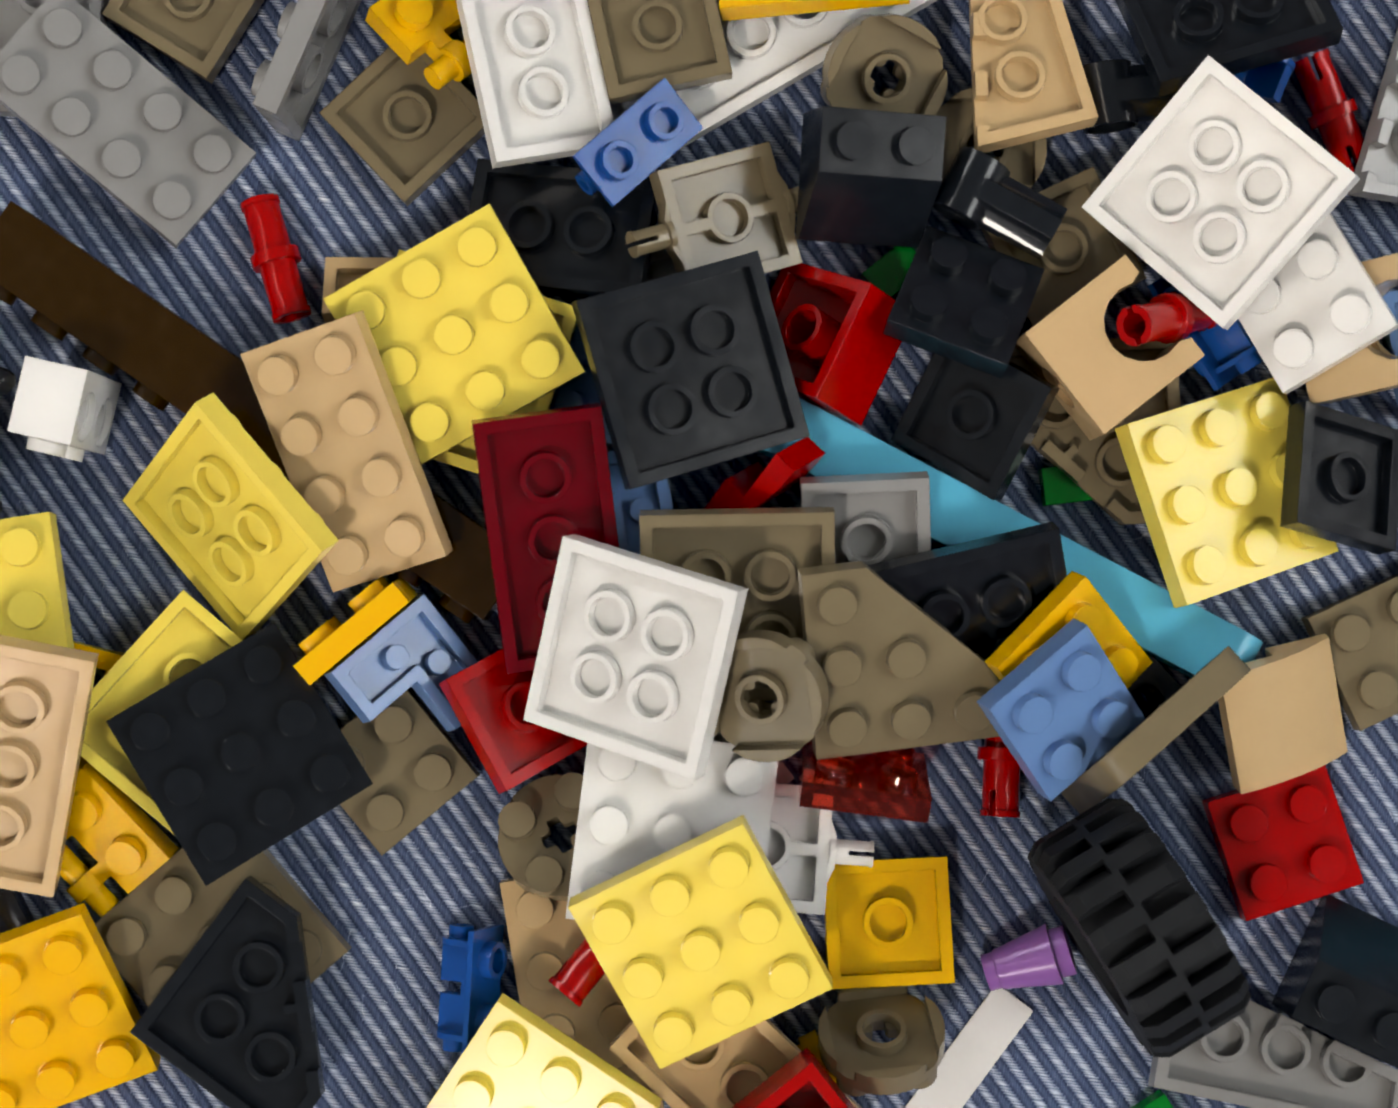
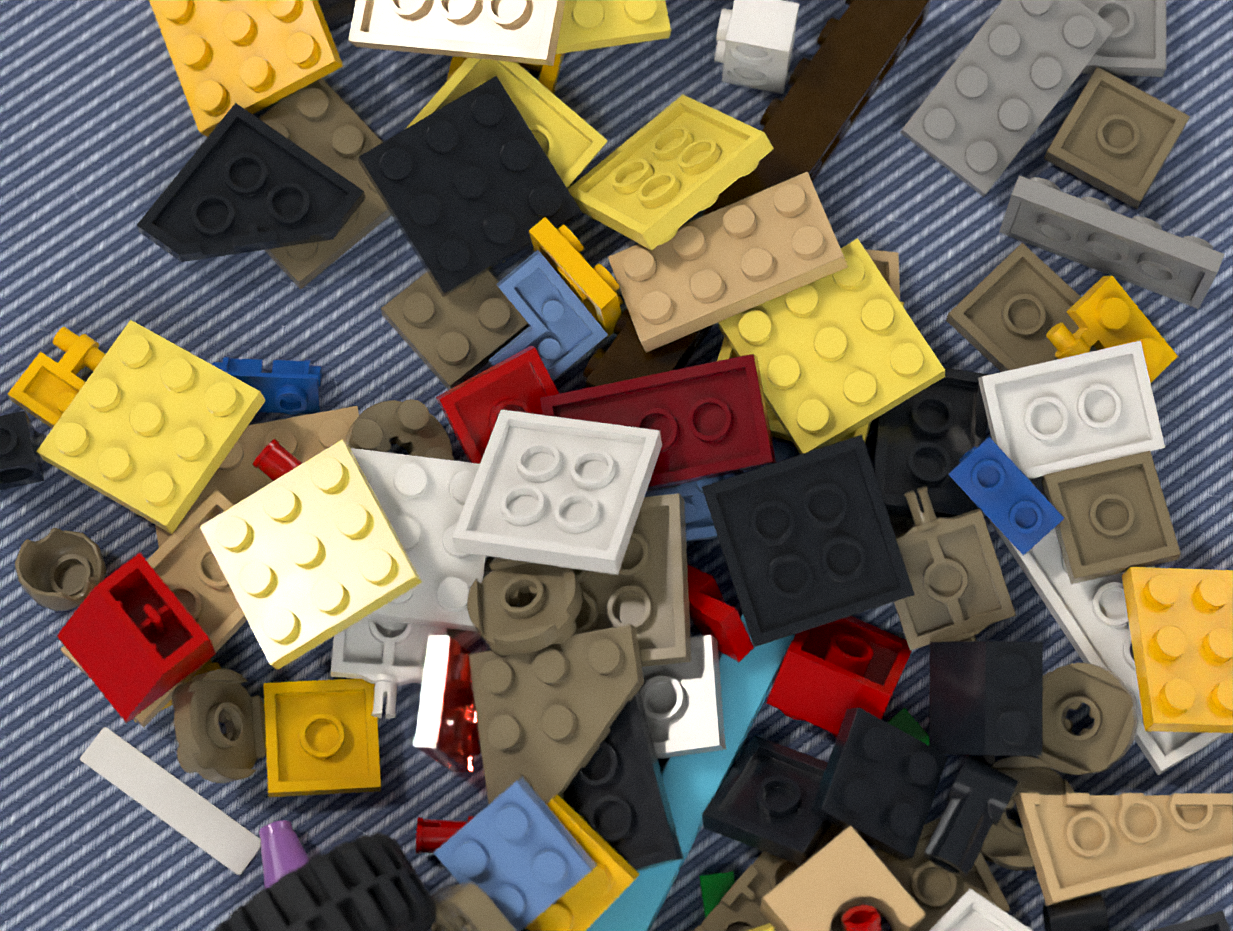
camera: 90 degrees right, 15 degrees down
(116, 836) = (398, 93): yellow plate -> none
(275, 258) = (894, 212): red pin -> none

